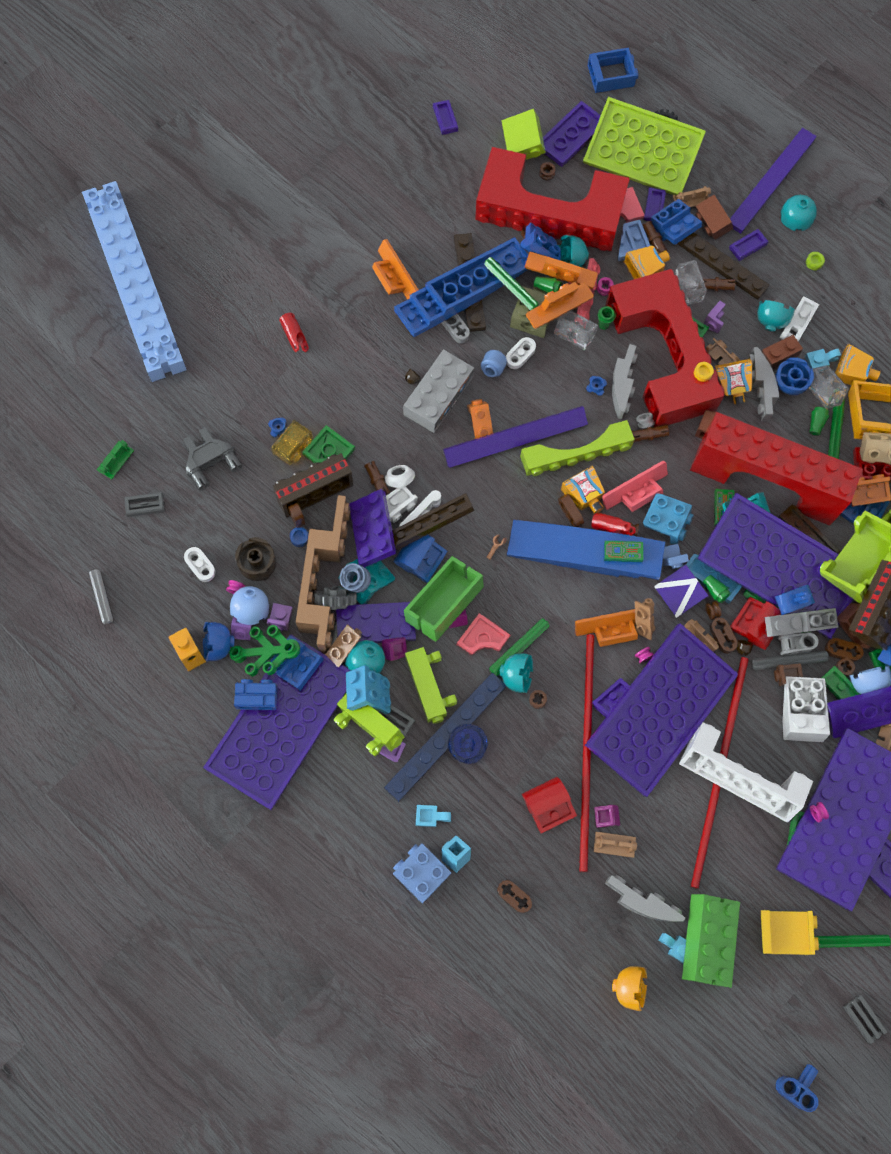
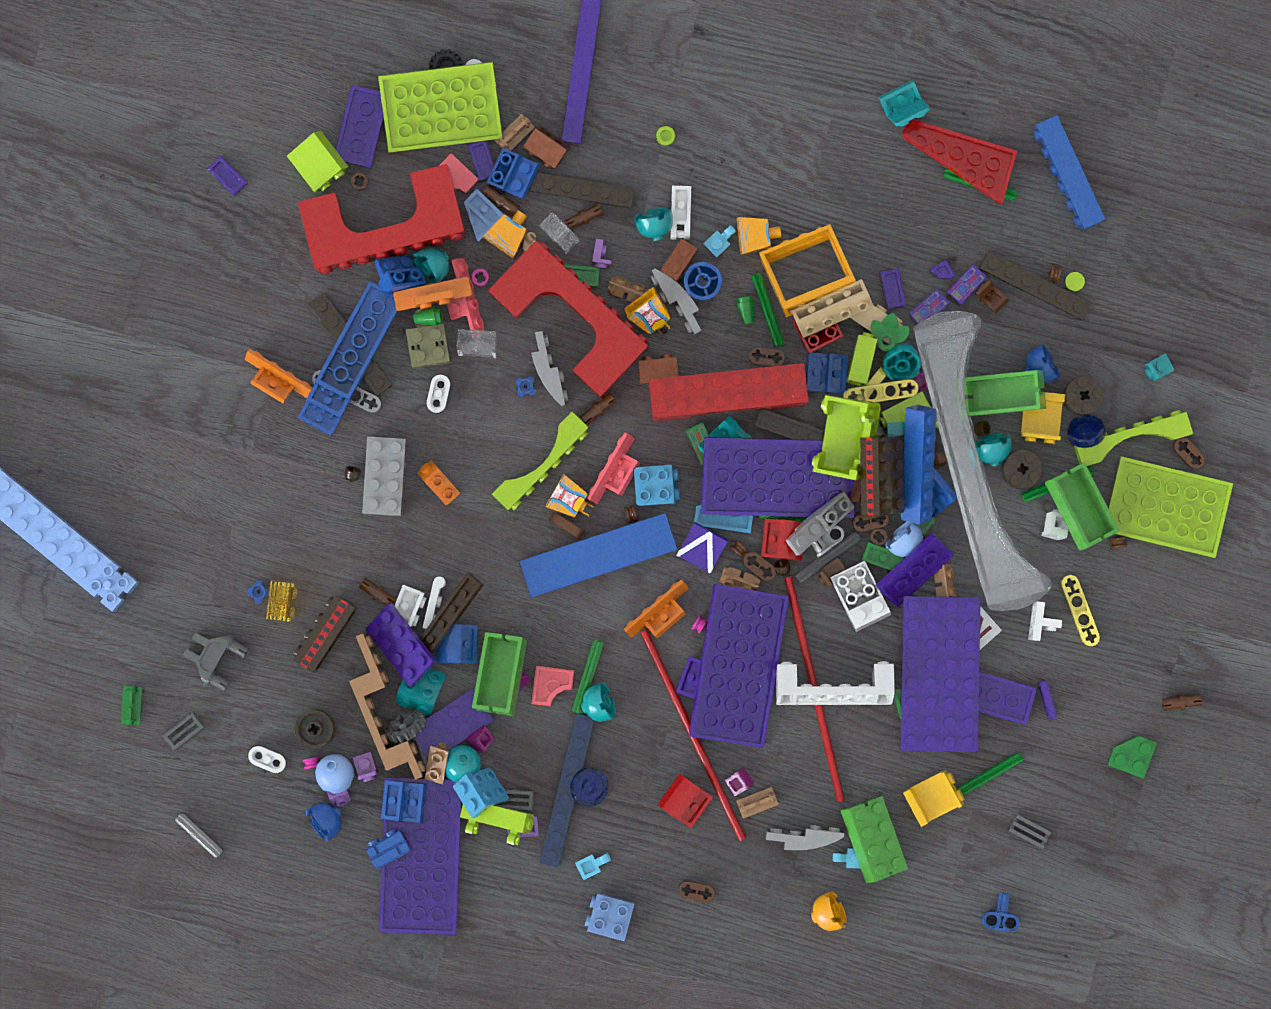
camera: 25 degrees left, 15 degrees up
(186, 648) = (303, 840): light orange torso -> none
(266, 651) = (374, 806): green plant -> none
(293, 332) = (217, 491): red piece -> none
(296, 515) = (327, 669): reddish brown beam -> none
(299, 537) = (338, 684): blue tile -> none
(327, 444) = (316, 587): green plate -> none
(362, 582) = (419, 696): sand blue wheel -> none
(399, 480) = (400, 584): white piece -> none
(426, 684) = (526, 756): lime brick -> none
(456, 853) = (629, 885): medium azure brick -> none
(493, 363) = (419, 419): medium blue head -> none
(495, 546) = (517, 592): nougat hand -> none
(511, 284) = (394, 337): axle -> none
(515, 436) = (478, 480): dark purple tile -> none
(543, 701) = (634, 713): reddish brown bush -> none
(559, 303) = (448, 338): orange bracket -> none
(605, 317) = (498, 310): green cone -> none
(607, 58) = (374, 10): blue window -> none
(611, 524) = (609, 520): red piece -> none
(623, 551) = (633, 543): green tile -> none
(644, 618) = (683, 592): medium nougat hinge -> none
(645, 420) = (588, 398): light grey bush -> none
(673, 557) = (679, 519): medium blue bracket -> none
(703, 371) = (617, 333): yellow tile -> none
(717, 589) = (731, 530): green cone -> none
(748, 244) = (593, 153): dark purple tile -> none
(794, 599) = (804, 505): blue beam -> none
(798, 212) = (625, 92): teal cylinder -> none
(819, 812) = (911, 686): dark pink bush -> none
(828, 387) = (738, 274): clear brick -> none
(872, 491) = (824, 361): orange bracket -> none

